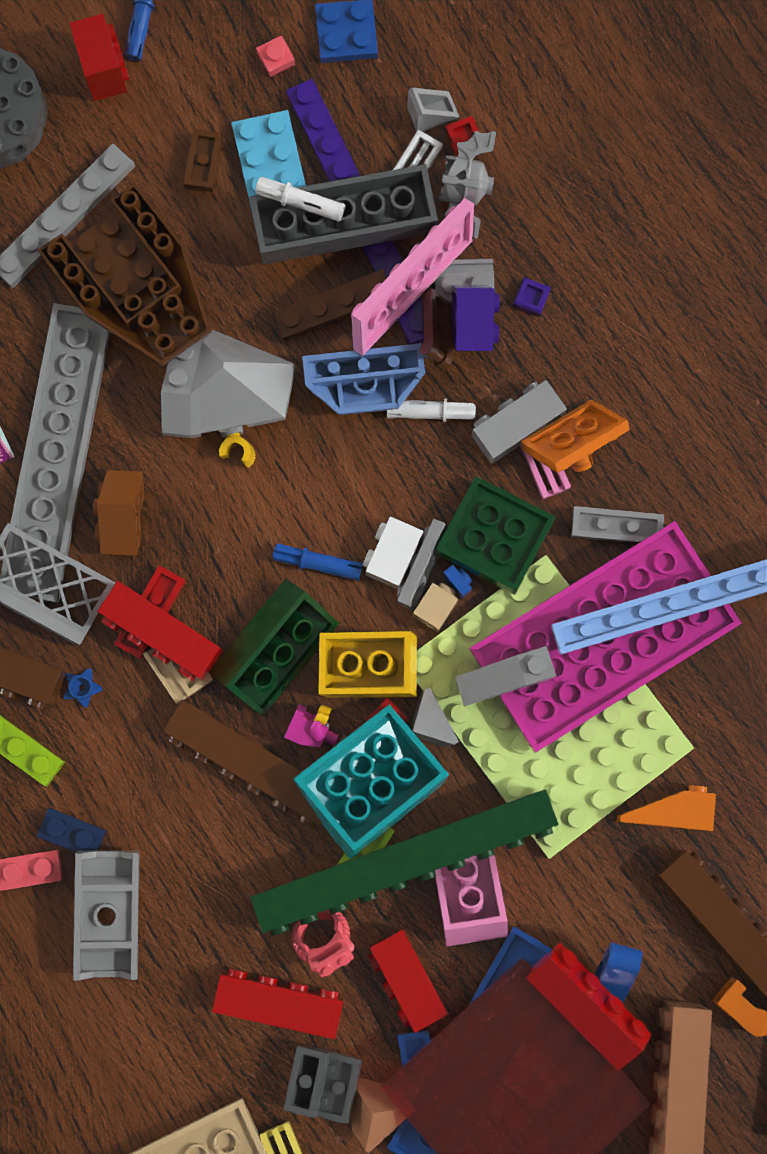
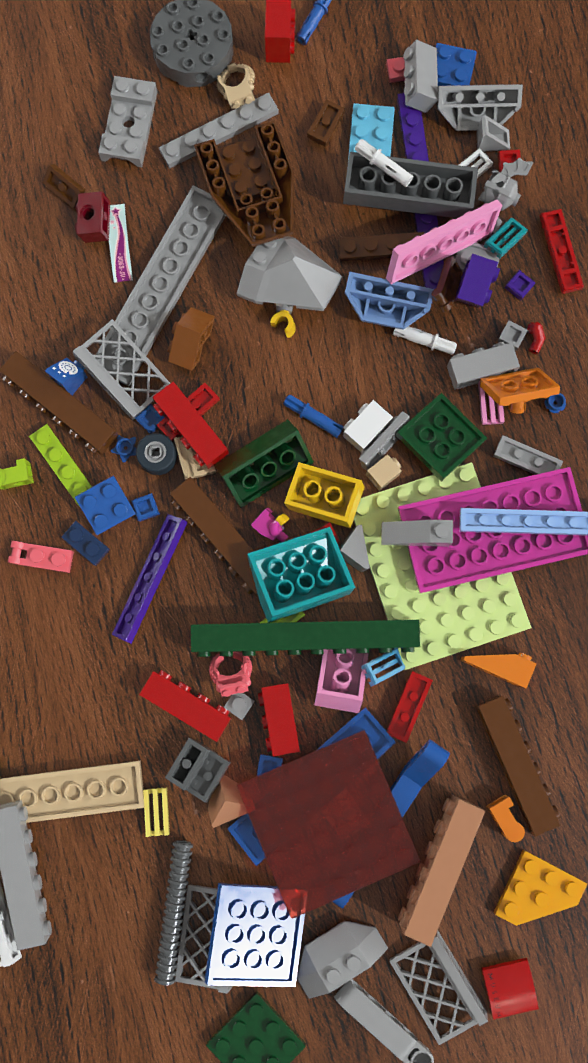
camera: 20 degrees right, 0 degrees up
(77, 158) = (238, 94): none -> tan piece
(81, 774) = (105, 505): none -> blue plate
(101, 638) = (149, 419): none -> blue tile
(101, 882) = (93, 581): light grey piece -> none
(135, 689) = (161, 460): none -> black wheel
(135, 758) = (145, 507): none -> blue tile
(173, 852) = (149, 578): none -> dark purple plate
(309, 59) = (421, 76): none -> light grey brick
(348, 979) = (239, 704): none -> light grey plate
(385, 75) = (468, 103): none -> light grey wedge
(458, 581) = (405, 459): blue plate -> none
(484, 259) = (496, 247): none -> teal tile
(506, 880) = (371, 673): none -> dark azure tile
(543, 367) = (512, 334): none -> light grey plate
(570, 904) = (409, 706): none -> red plate
(571, 234) = (561, 251): none -> red plate
(579, 358) = (538, 335): none -> red arm
(589, 1006) = (400, 779): red brick -> none
(636, 440) = (561, 403): none -> blue plate

